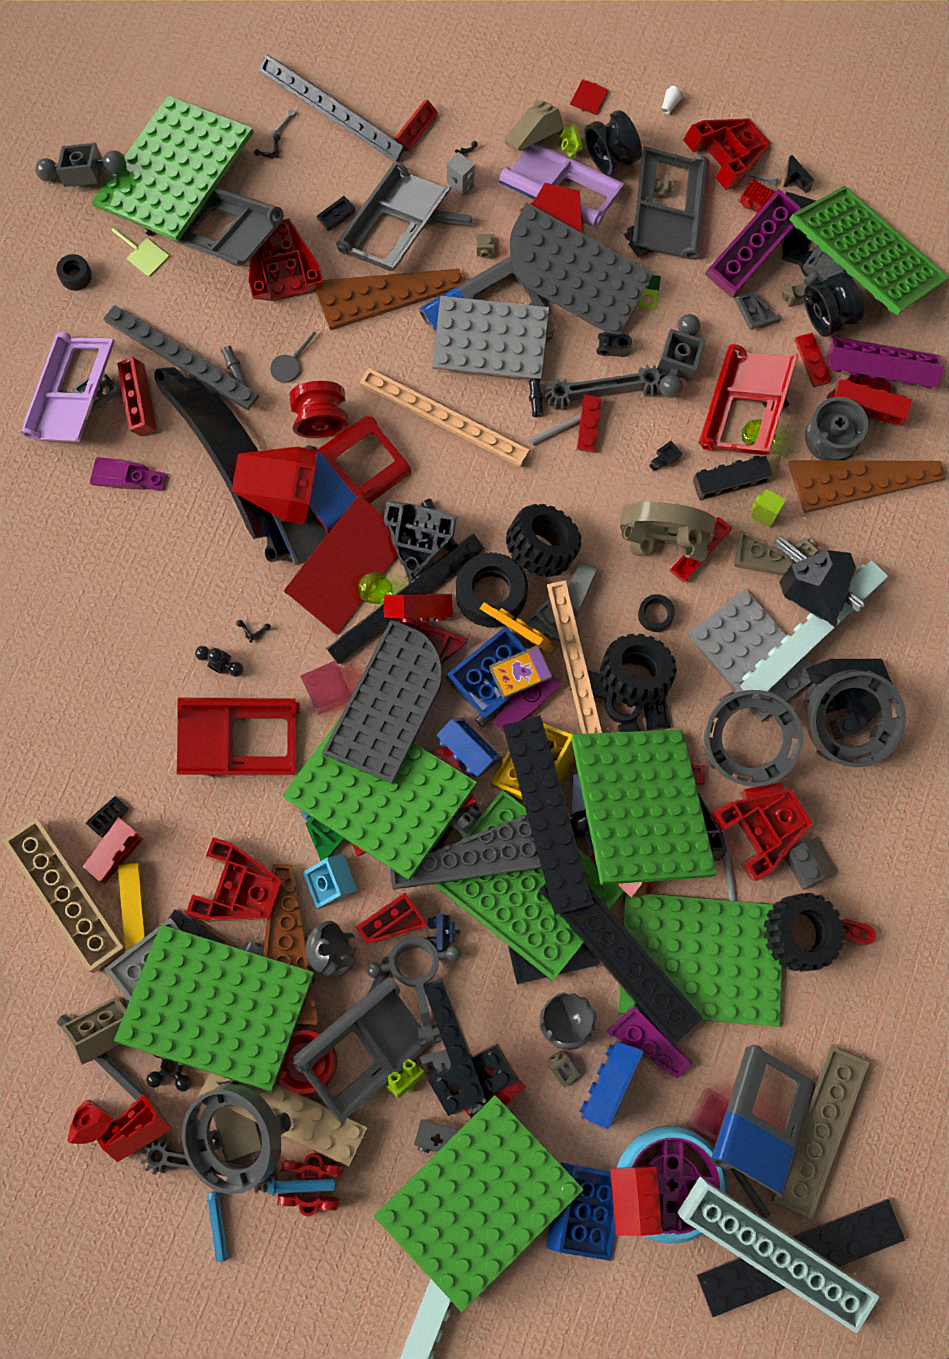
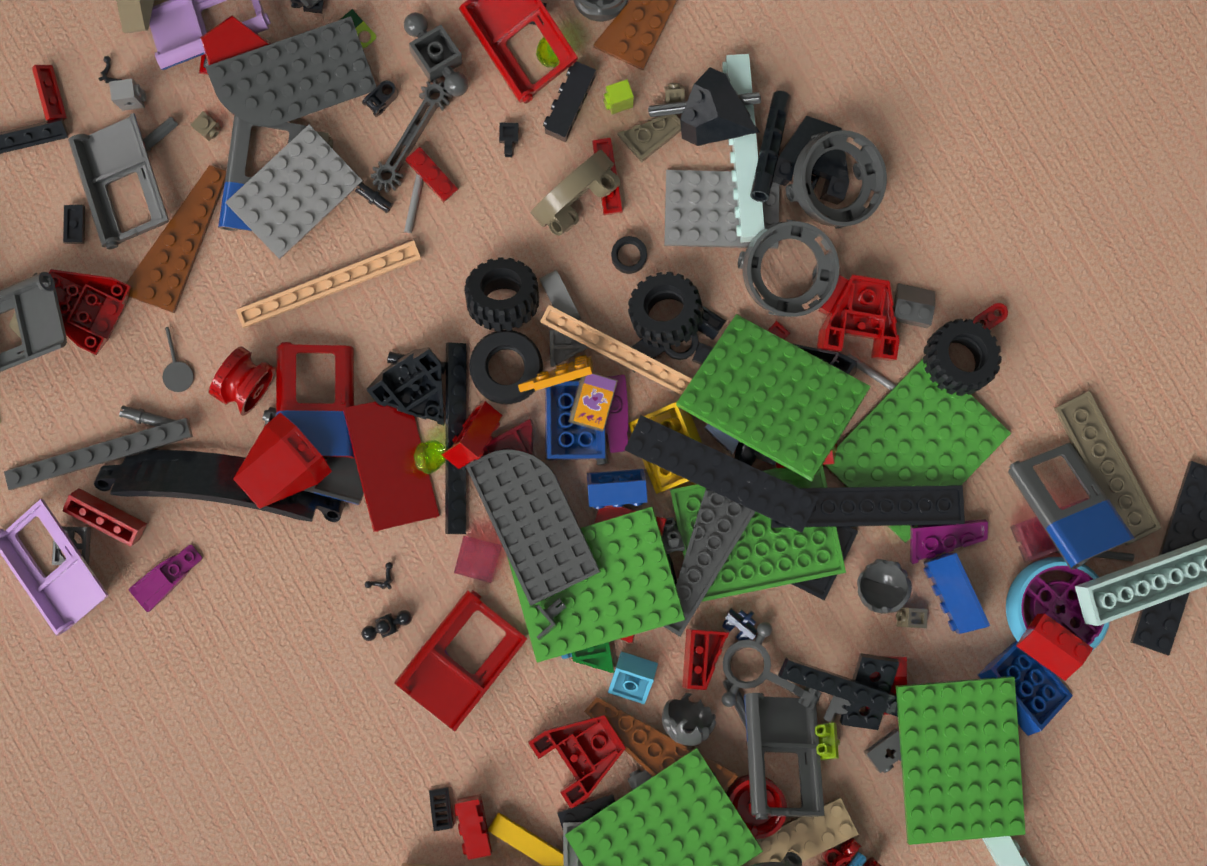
camera: 50 degrees left, 10 degrees up
(327, 772) = (550, 613): none -> dark grey bracket
(832, 647) = (770, 146): none -> black piece

